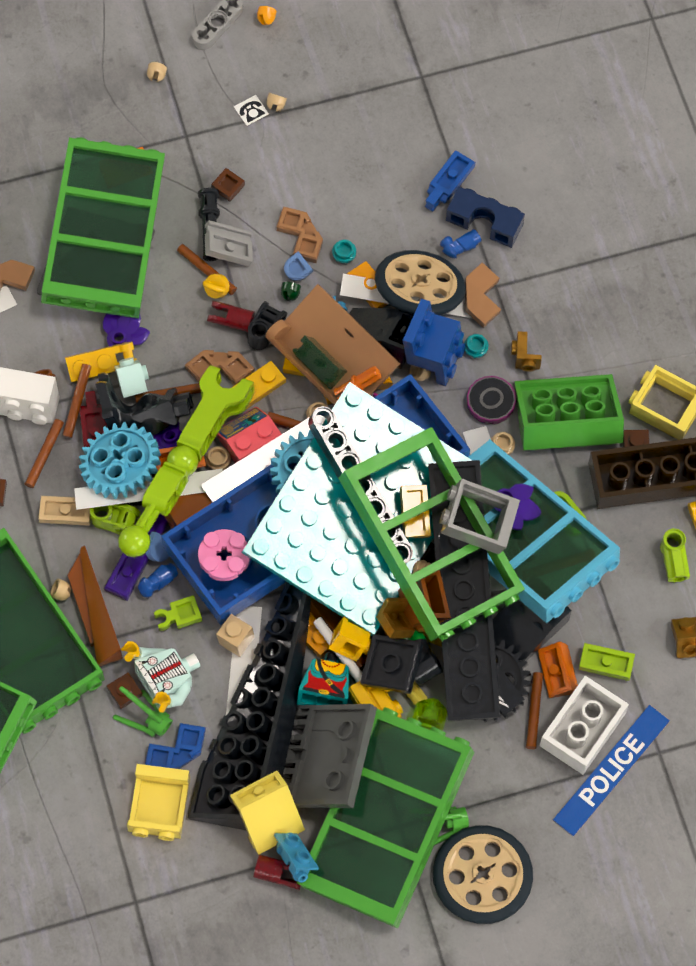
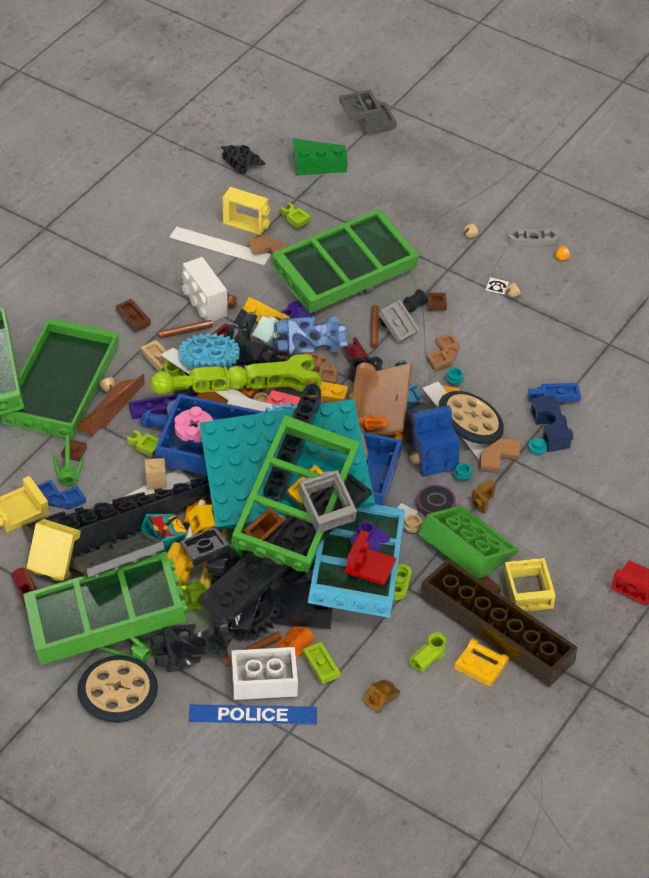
camera: 50 degrees right, 20 degrees down
(77, 400) = (212, 328): dark orange bar -> none
(161, 350) = (328, 333): none -> medium blue hips
(162, 673) = (98, 455): torso -> none
(216, 285) = (367, 334): yellow tile -> none
(296, 855) = (38, 579): dark azure hinge -> none
(297, 268) = (420, 362): medium blue tile -> none
(320, 362) = (367, 397): clear green hinge -> none
(393, 619) = (229, 523): pearl gold bracket -> none
(462, 244) = (523, 425): blue arm -> none
(480, 783) = (214, 641): none -> black hips
(500, 251) = (537, 446): none -> teal plate
(556, 530) = (368, 563): none -> red bracket

